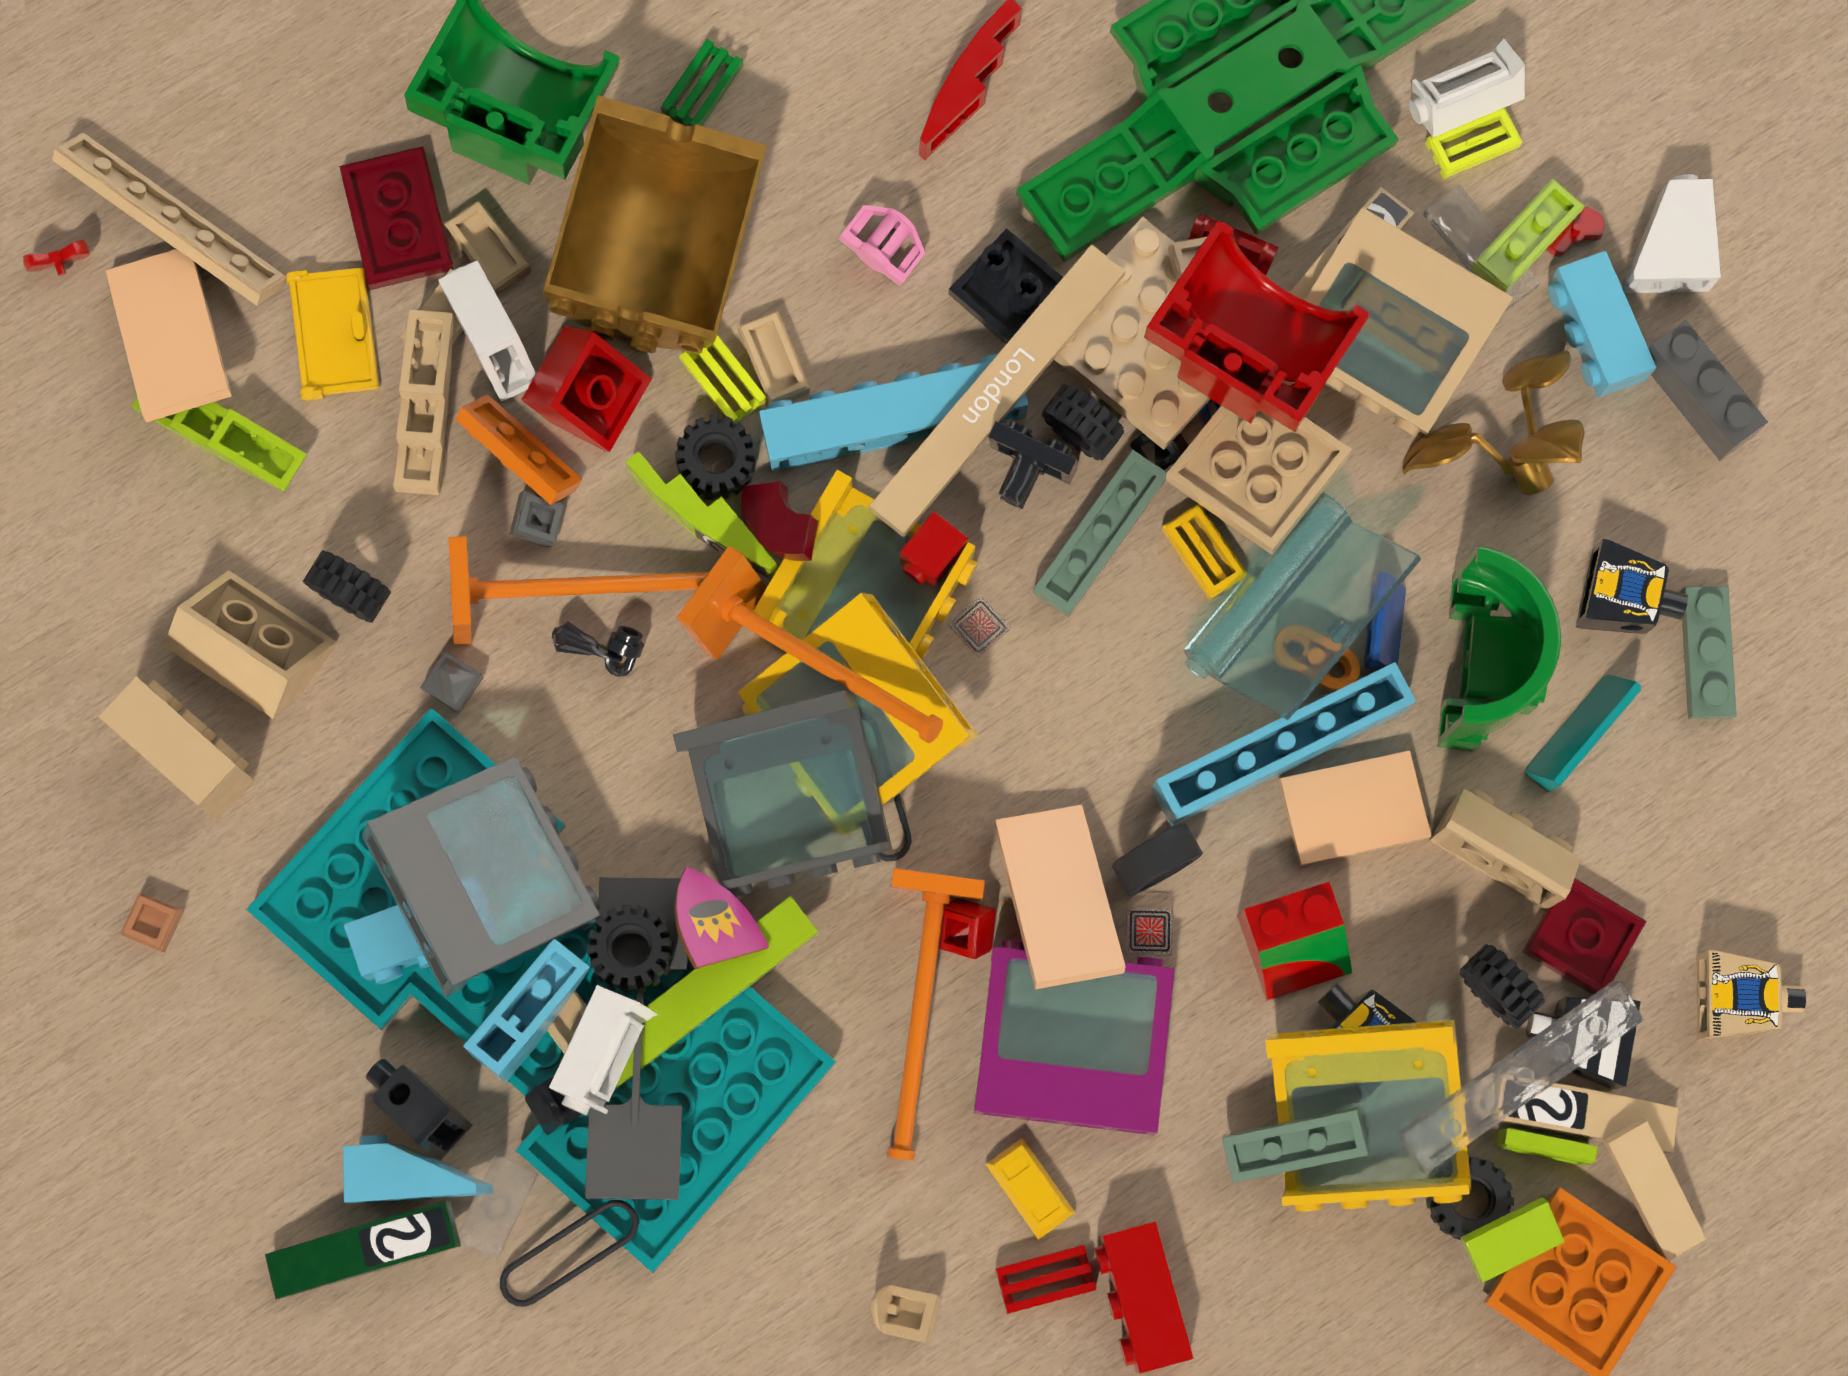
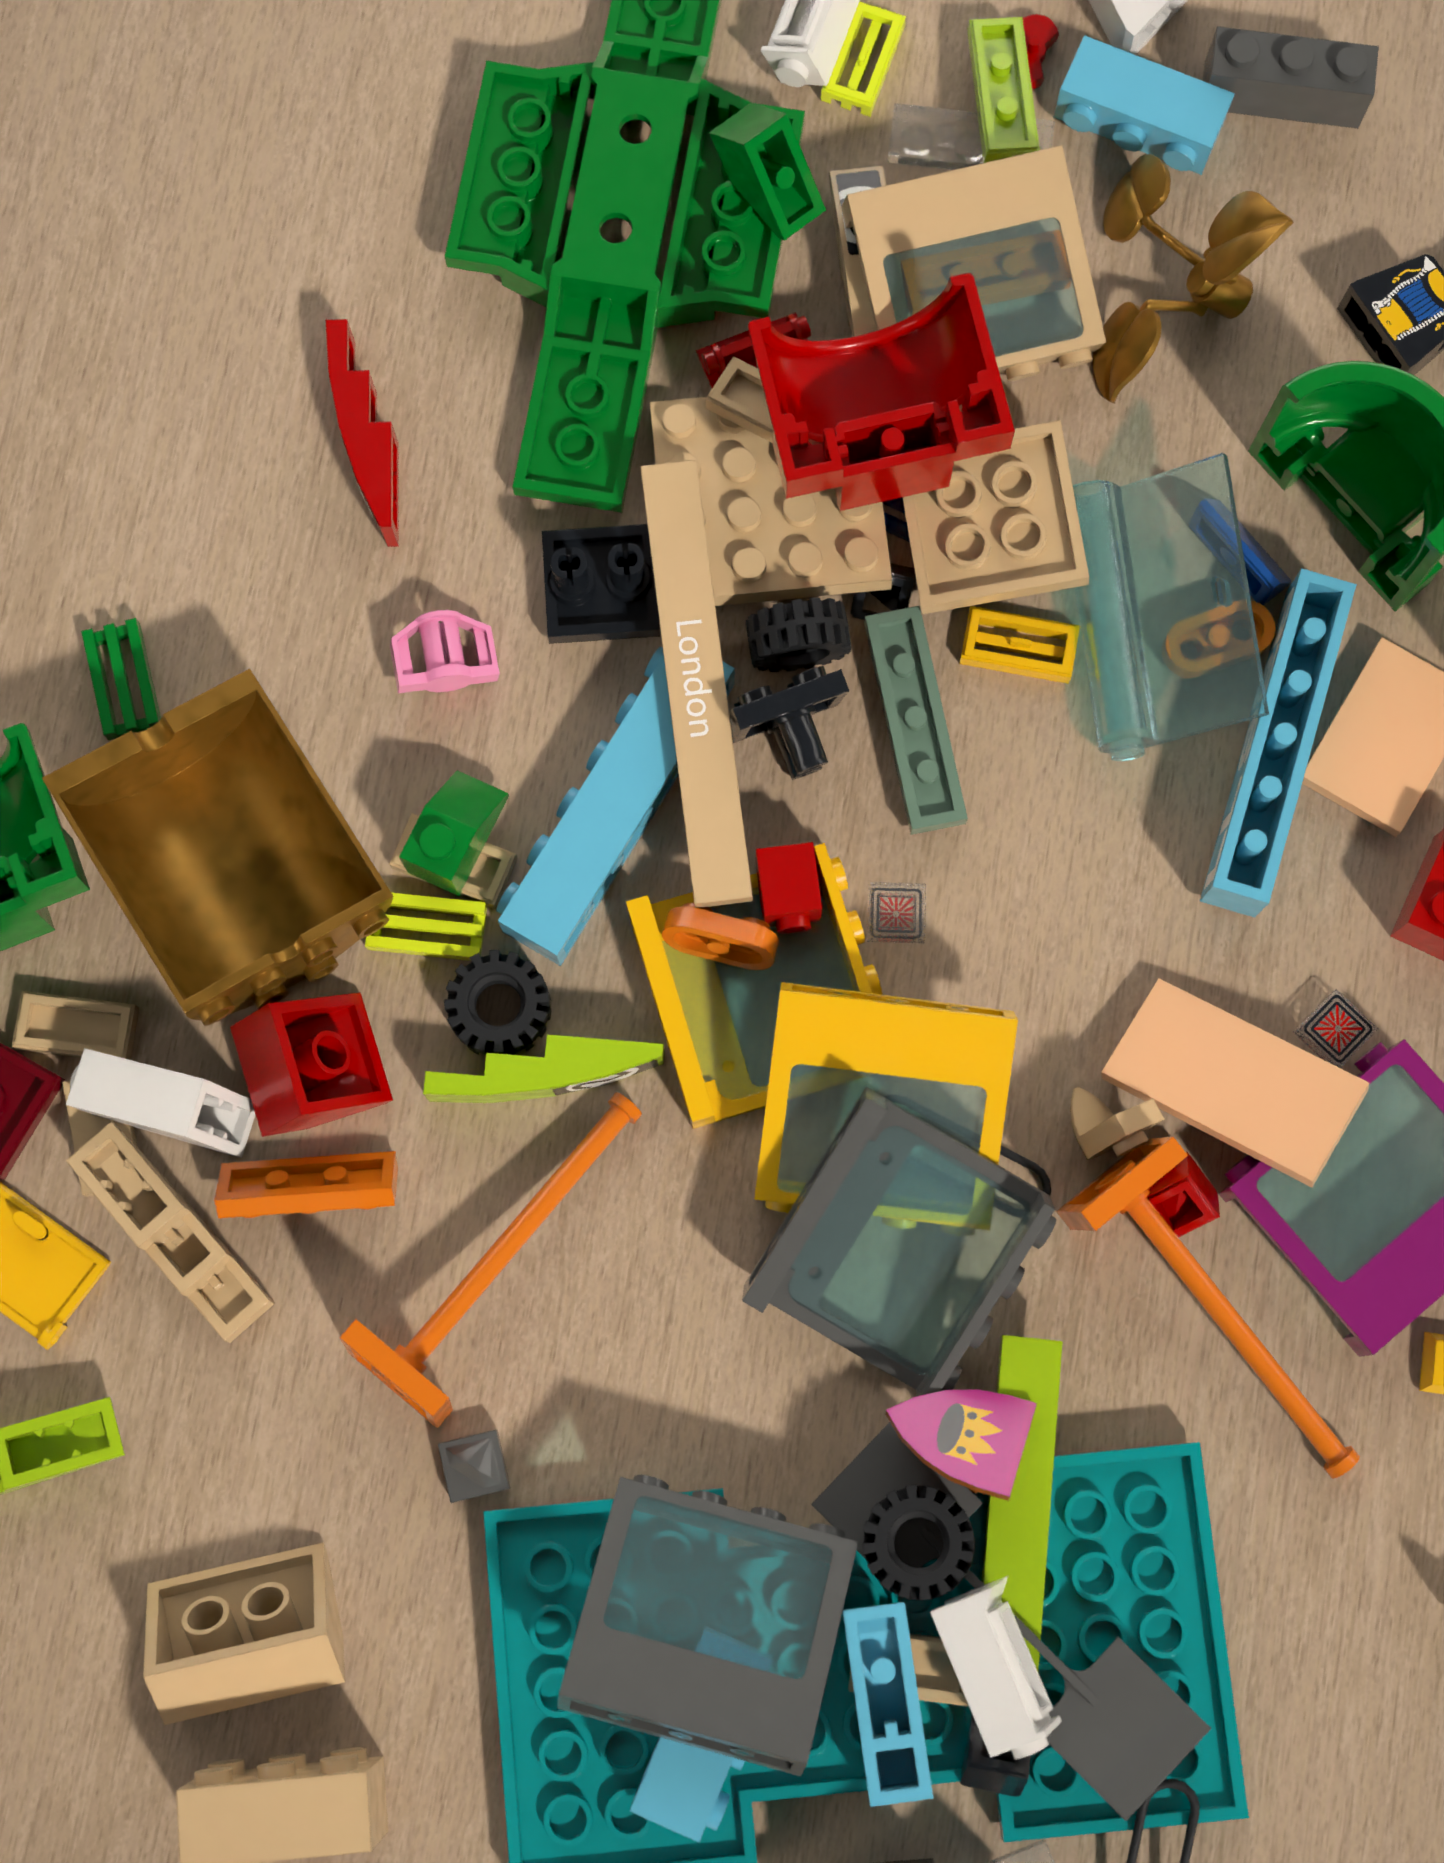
camera: 40 degrees left, 0 degrees up
(347, 586) = (283, 1482): black tyre -> none
(536, 519) = (393, 1232): dark grey tile -> none
(623, 642) = (595, 1263): black piece -> none
(727, 603) = (658, 1129): orange tile -> none
(775, 524) = (623, 1008): dark red tile -> none
(787, 340) = (453, 831): none -> green slope
(863, 533) = (721, 938): none -> orange plate
(964, 851) = (1101, 1131): none -> tan plate
(1157, 859) = (1284, 958): black tyre -> none
(1337, 151) = (769, 168): none -> green slope

